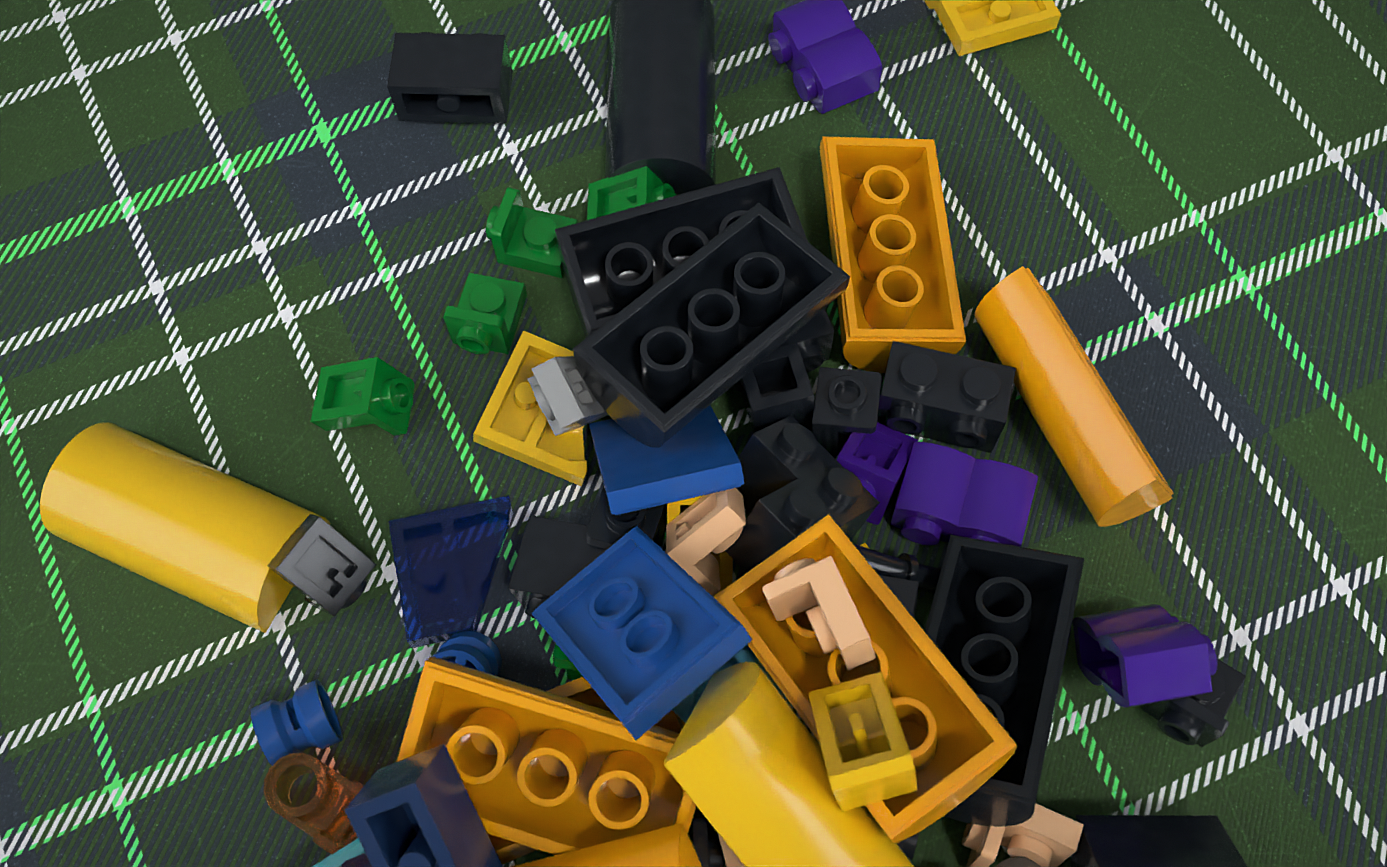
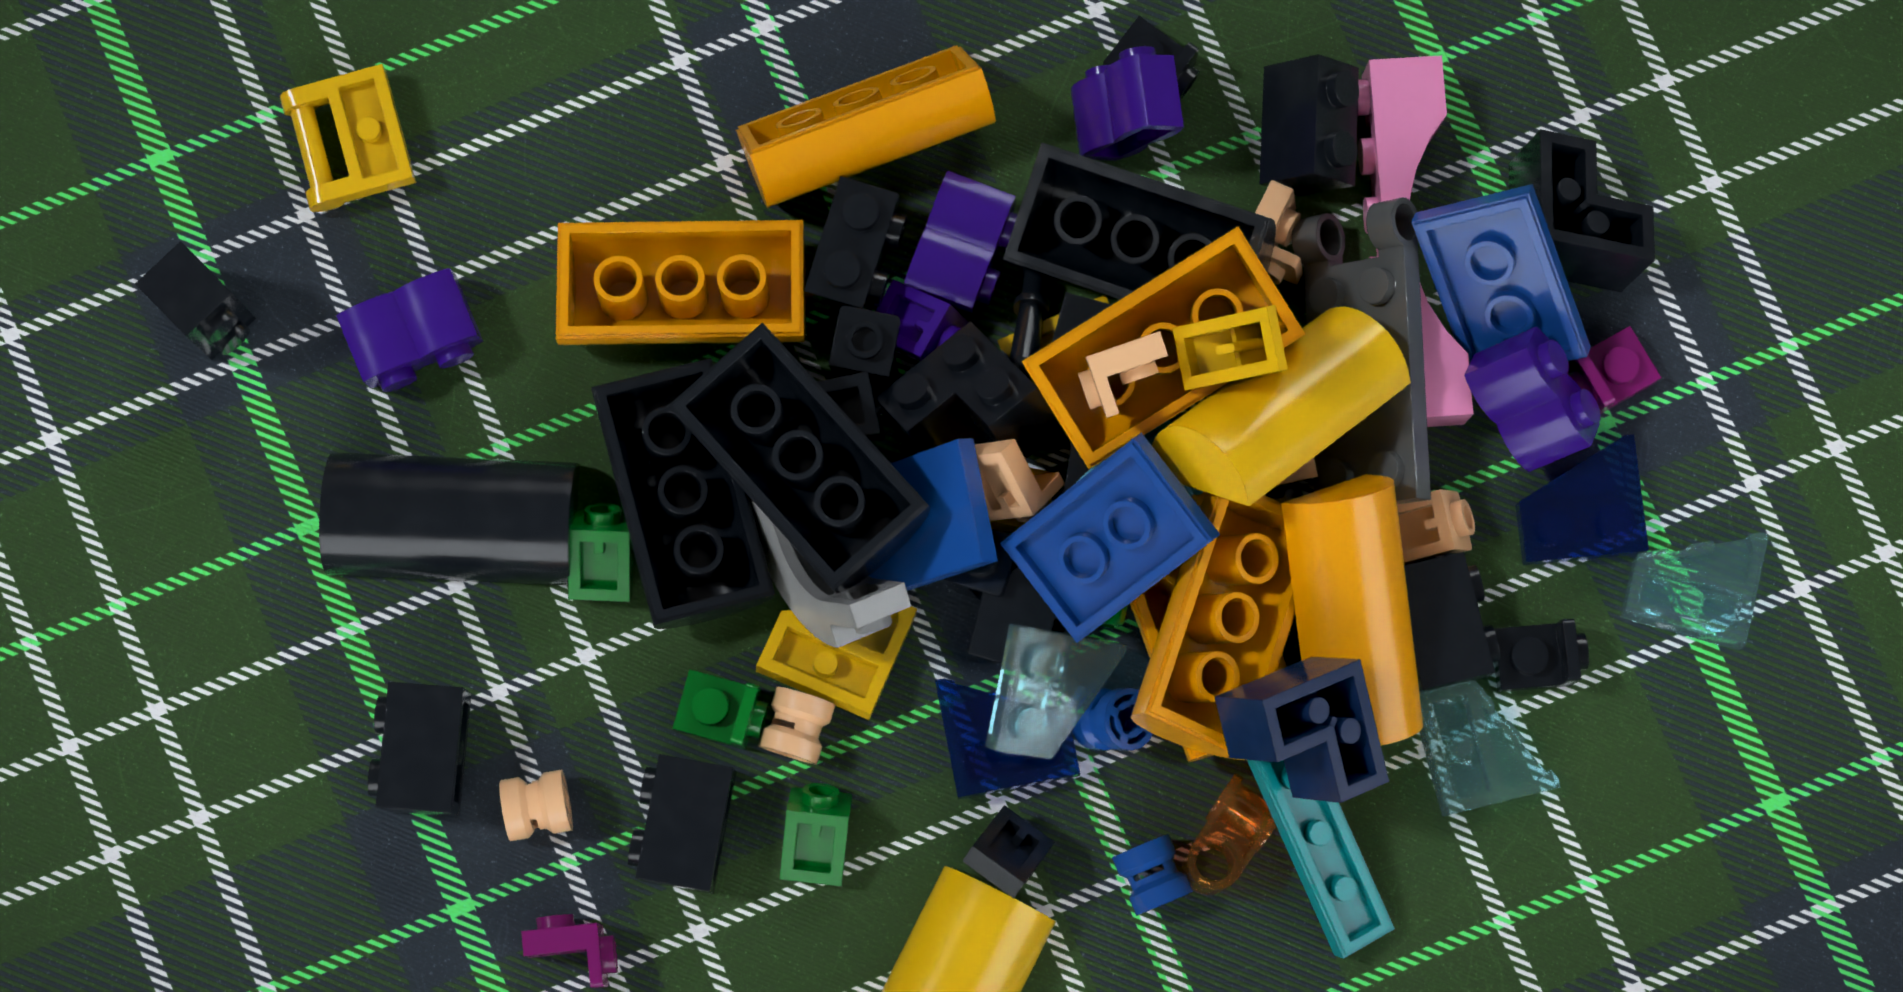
camera: 90 degrees left, 15 degrees up
(276, 212) = (561, 936): none -> magenta bracket
(376, 285) = (683, 823): none -> black brick
(401, 168) = (536, 805): none -> light nougat wheel
(464, 372) = (796, 725): none -> light nougat wheel
(490, 594) = (1046, 688): none -> clear light blue wing
(526, 235) = (629, 661): green bracket -> none

